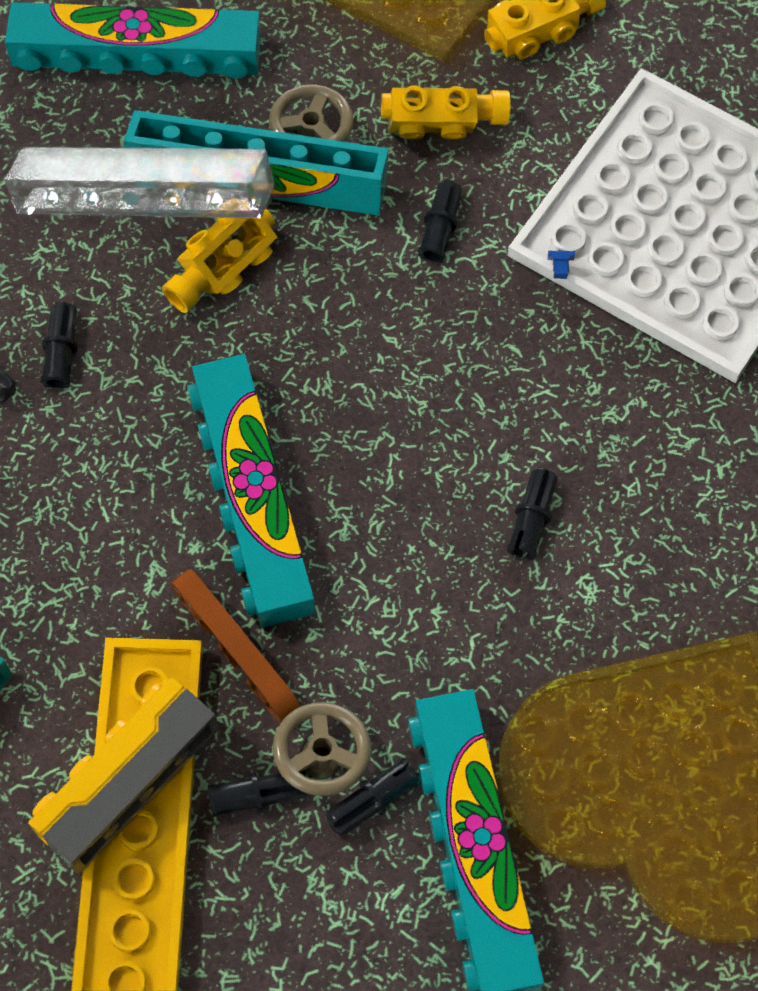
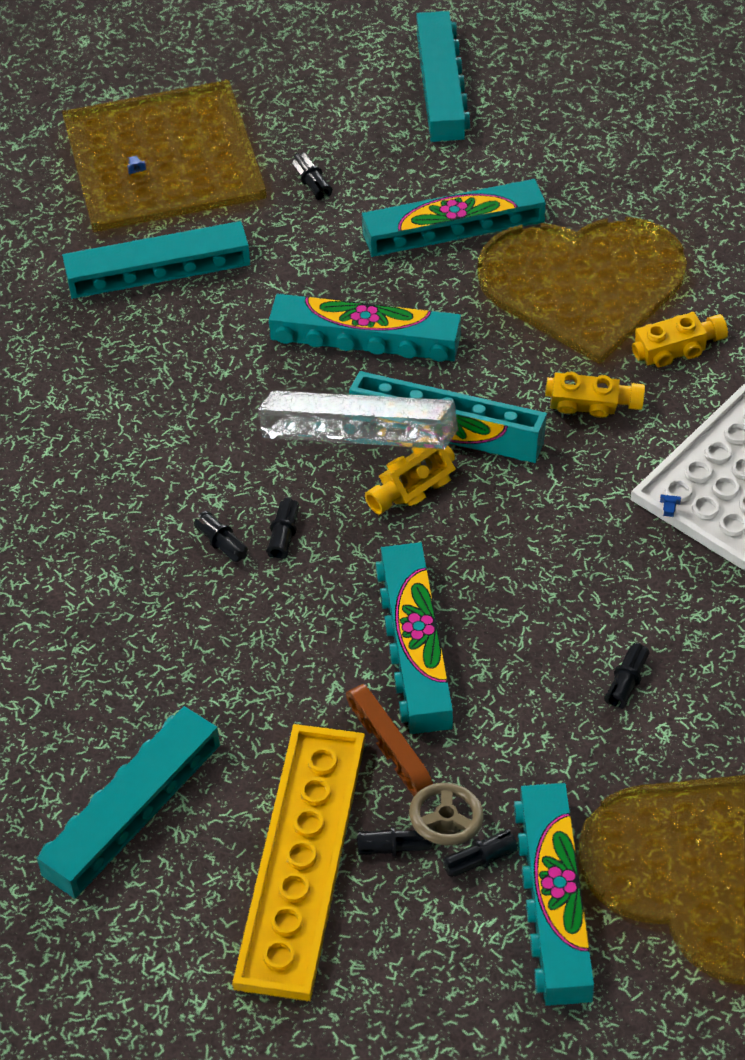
camera: 10 degrees right, 15 degrees down
(123, 774) = (296, 811): dark grey piece -> none
(311, 120) = (493, 390): dark tan piece -> none
(440, 221) = (581, 471): black axle -> none

